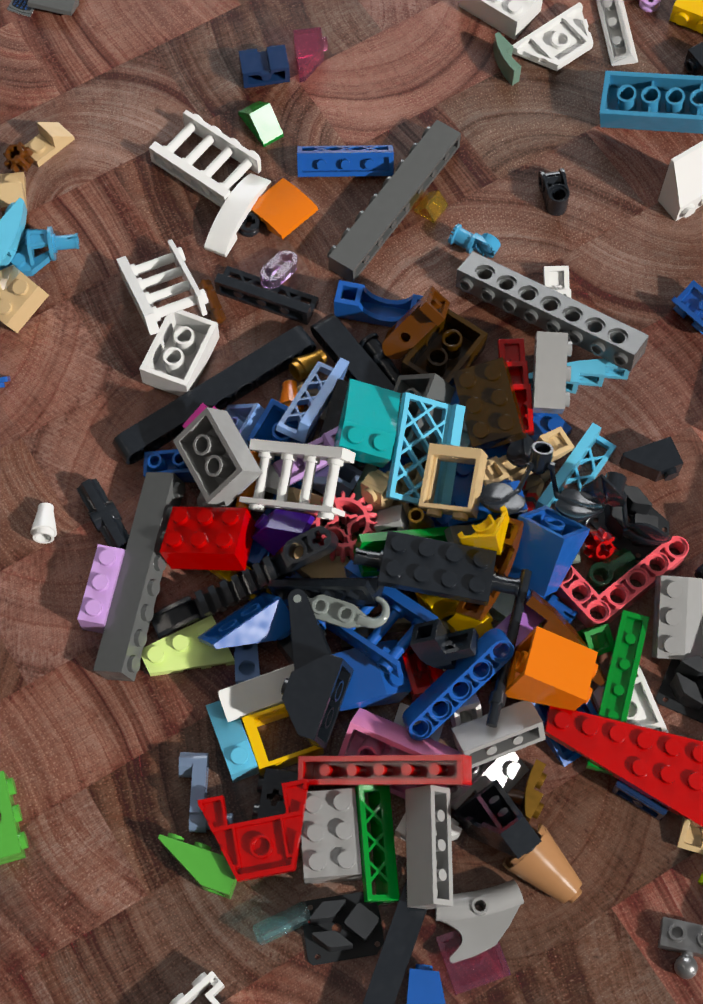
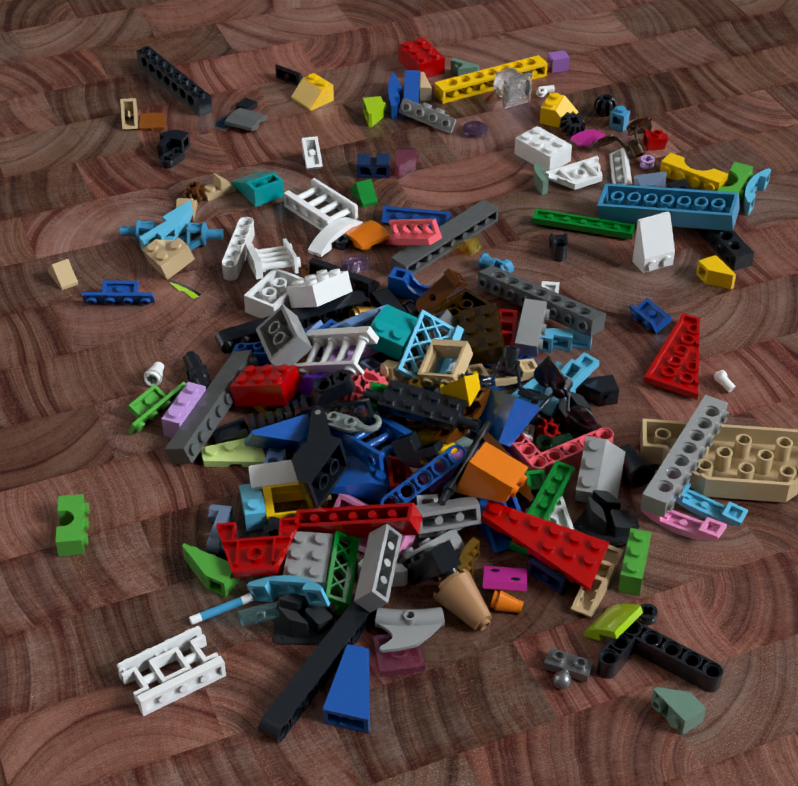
camera: 10 degrees right, 25 degrees down
(42, 346) = (181, 287): none -> sticker
(52, 582) = (149, 404): none -> bright green bracket
(108, 133) = (260, 187): none -> teal slope
(109, 272) = (236, 251): none -> white beam
(171, 56) = (311, 153): none -> white slope
(229, 923) = (220, 609): none -> dark azure bar
(242, 339) = (319, 288): none -> white brick
(288, 888) = (269, 587): none -> medium azure slope
(353, 209) = (415, 236): none -> coral fence
(581, 141) = (583, 224): none -> green plate
(588, 816) = (505, 578): none -> dark pink tile
(591, 852) = (505, 602): none -> orange cone
(623, 448) = (577, 371): none -> medium azure slope
(660, 50) = (652, 179): none -> sand blue slope

